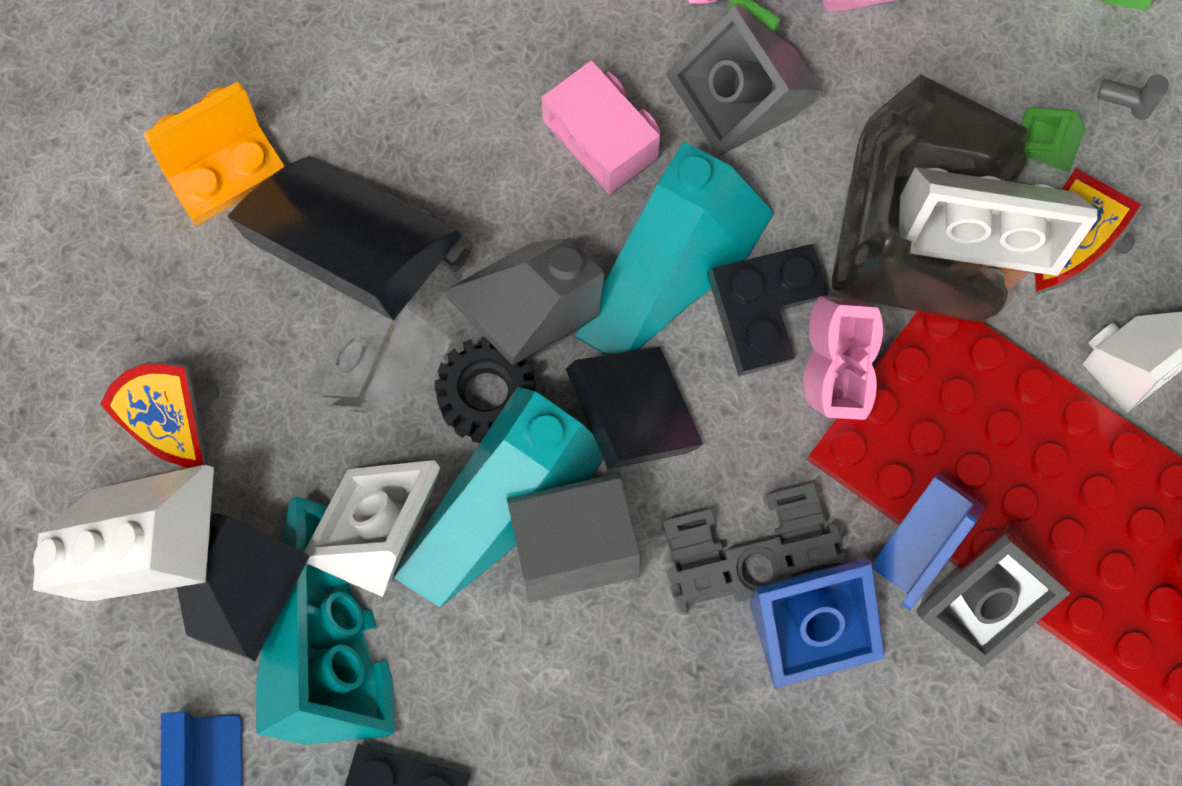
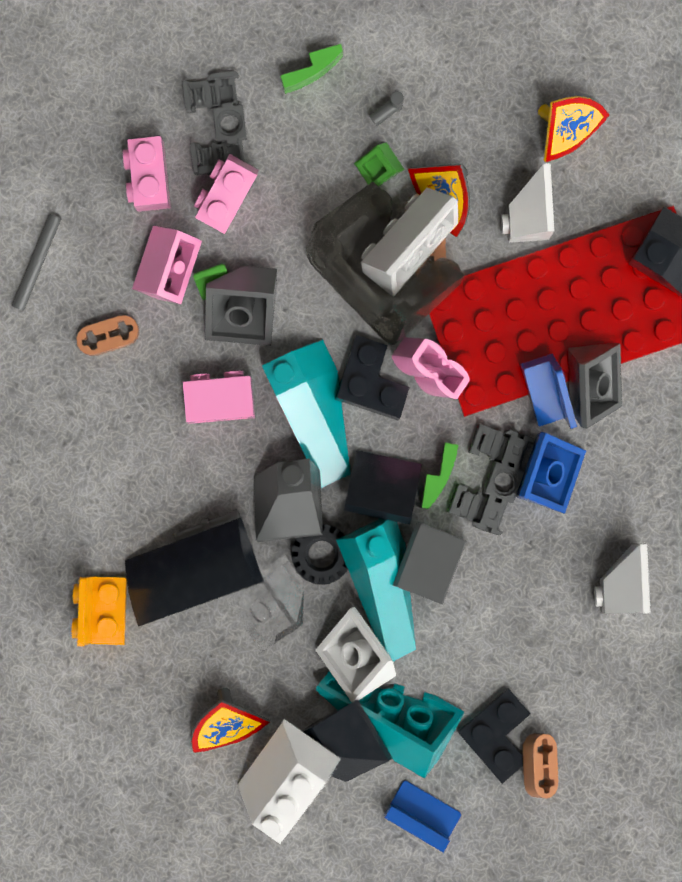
camera: 50 degrees left, 15 degrees up
(687, 476) = (435, 484): none -> bright green slope

